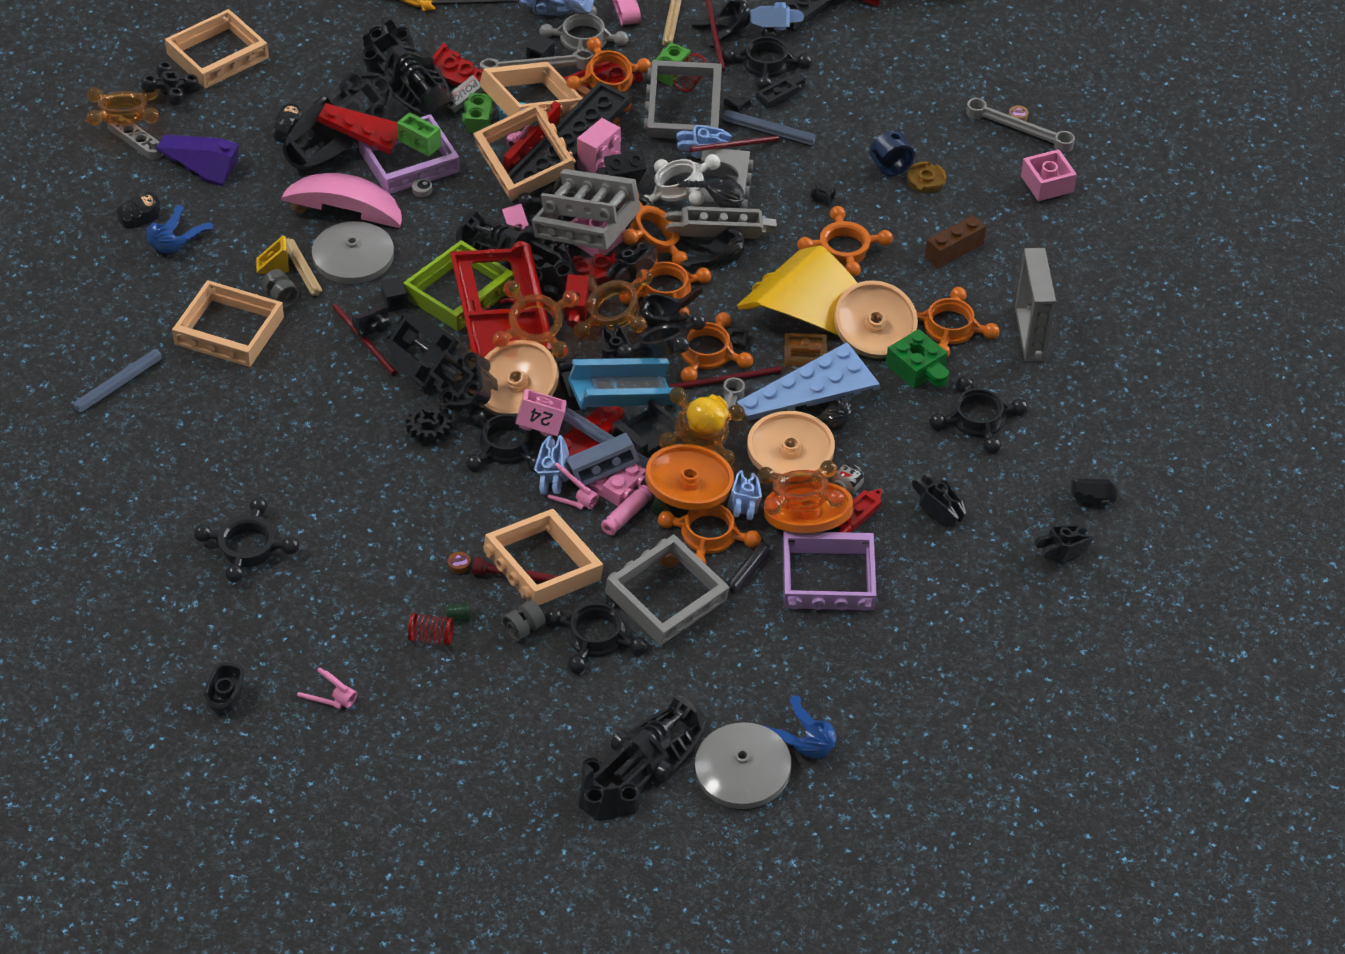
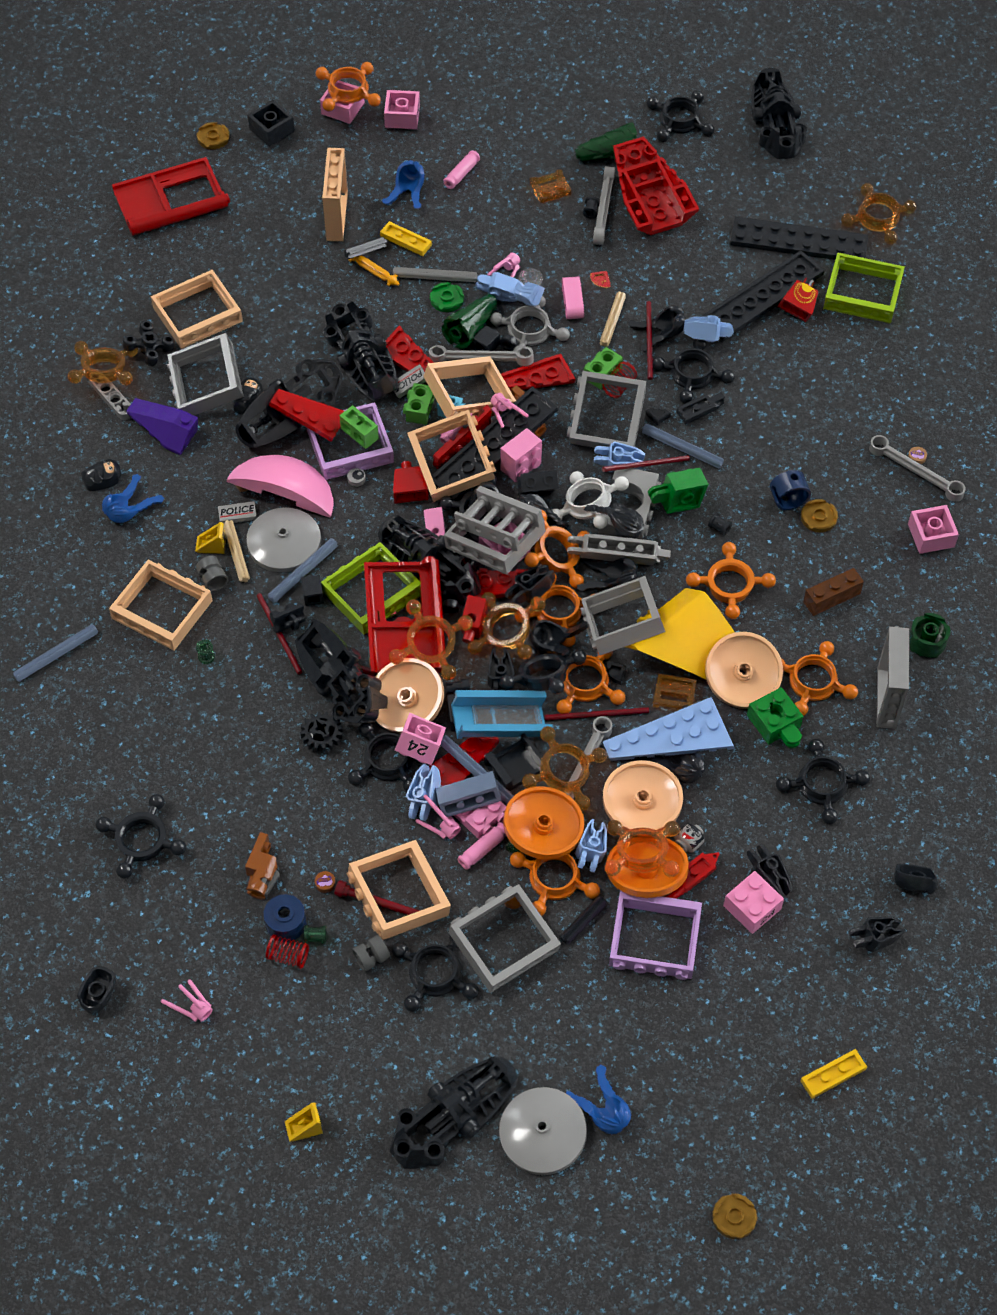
camera: 10 degrees right, 10 degrees up
(229, 84) = (195, 353): none -> light grey window
(285, 361) = (208, 653): none -> clear green bush
(298, 231) = (237, 512): none -> light grey tile
(382, 274) = (302, 570): none -> sand blue axle
(387, 556) = (261, 869): none -> dark orange plate
(429, 603) = (289, 927): none -> dark blue piece
(481, 787) = (304, 1123): none -> yellow slope
(482, 187) = (409, 484): none -> red torso
(489, 16) = (446, 297): none -> green tile
(514, 36) = (467, 322): none -> dark green cone
(564, 48) = (508, 342): none -> black tile
(570, 98) = (500, 403): none -> bright pink plant
(594, 45) = (534, 345): orange piece -> none
(707, 414) = (570, 761): yellow hair -> none
(731, 263) = (614, 597): none -> light grey window
(776, 163) = (680, 490): none -> green brick
(927, 529) = (753, 902): none -> bright pink brick
(964, 821) = (734, 1216): none -> pearl gold tile
(1043, 677) = (833, 1073): none -> yellow plate
(1066, 269) = (929, 635): none -> dark green brick

